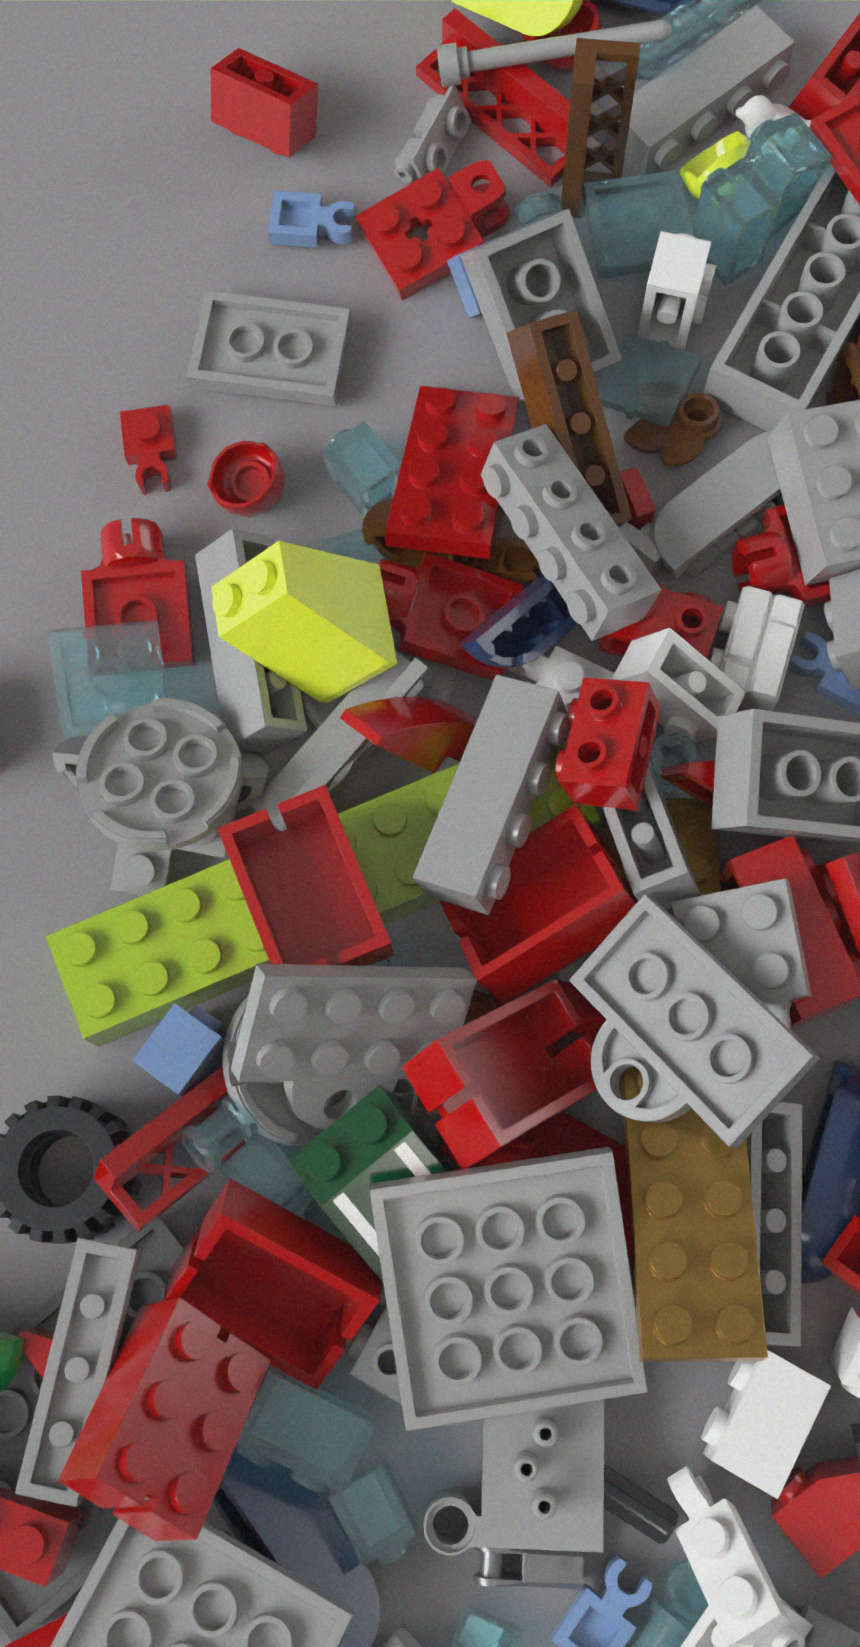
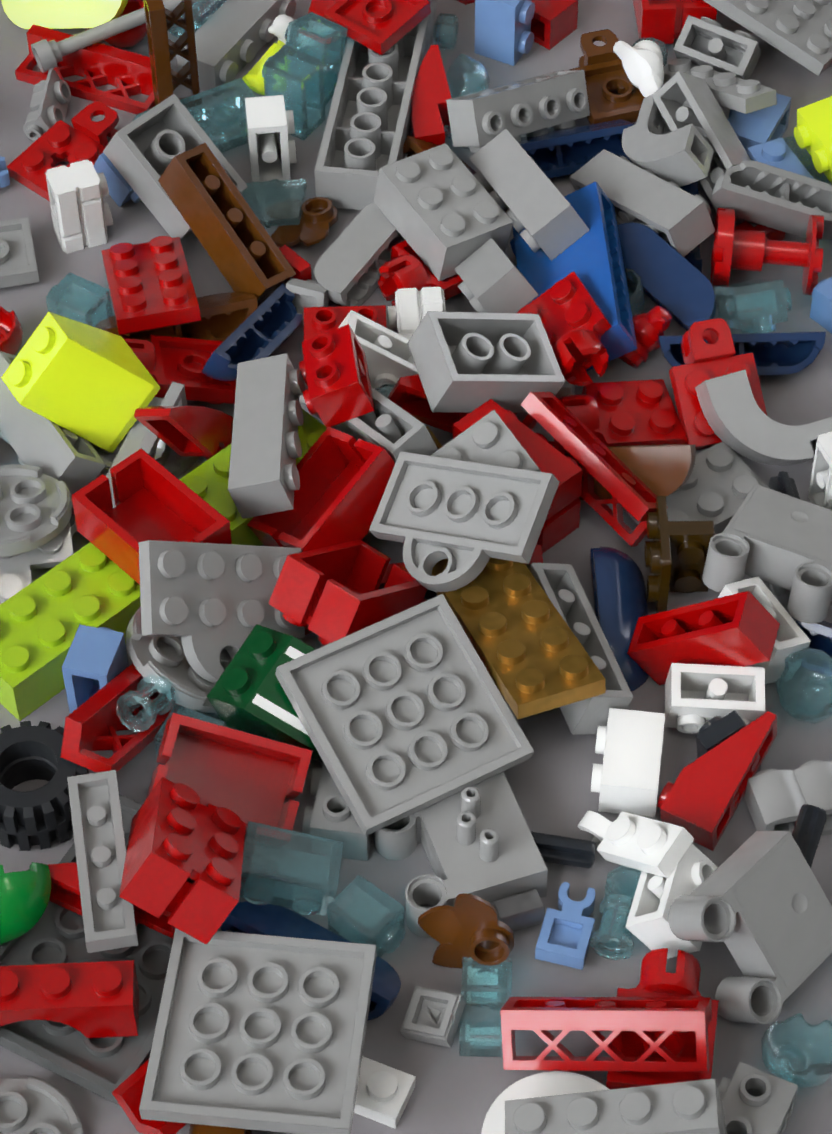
camera: 25 degrees left, 25 degrees down
(410, 318) = (78, 205): none -> white brick
(494, 1611) = (467, 931): none -> reddish brown plate
(569, 532) = (254, 280): light grey brick -> none

